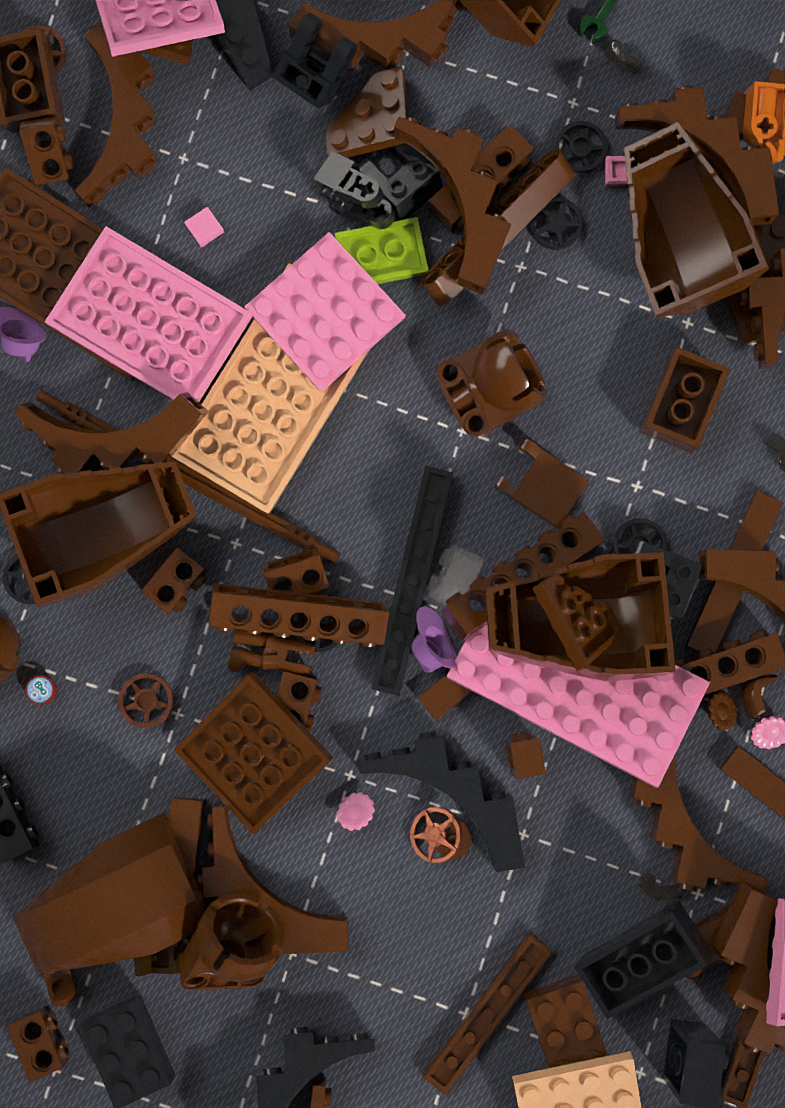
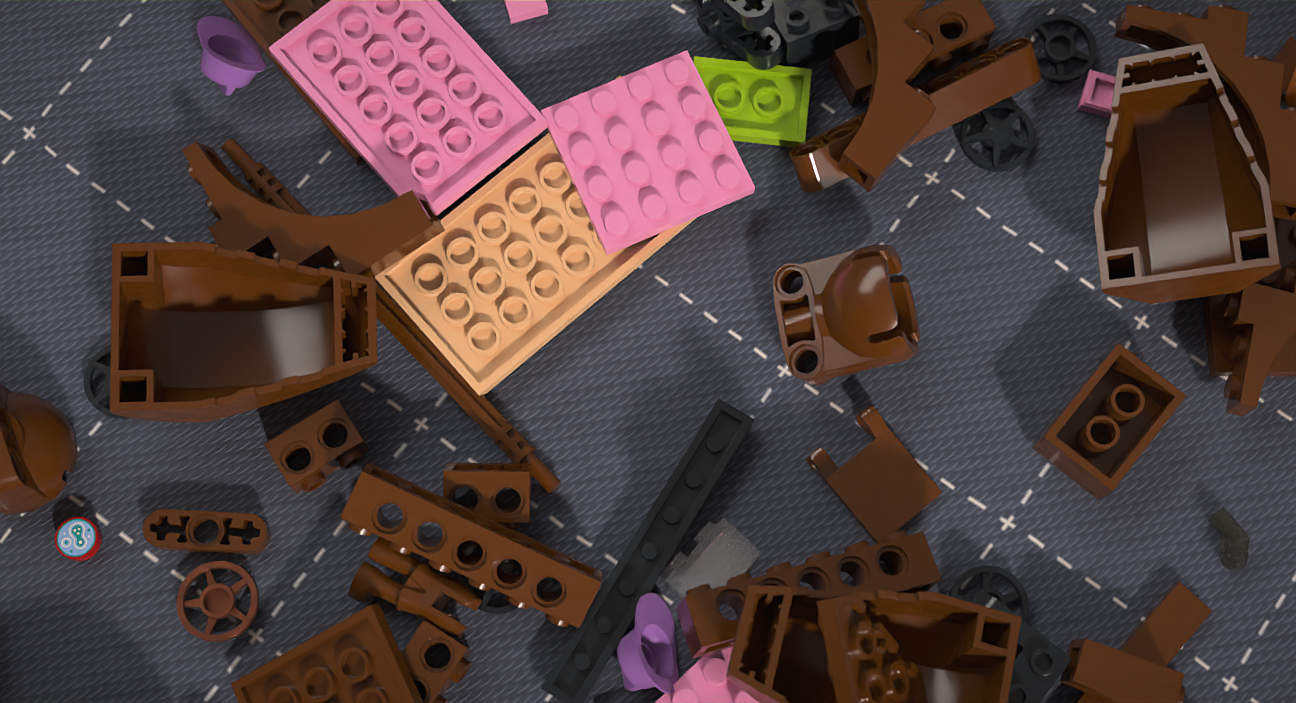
camera: 15 degrees right, 10 degrees down
(103, 671) = (177, 518): none -> reddish brown beam

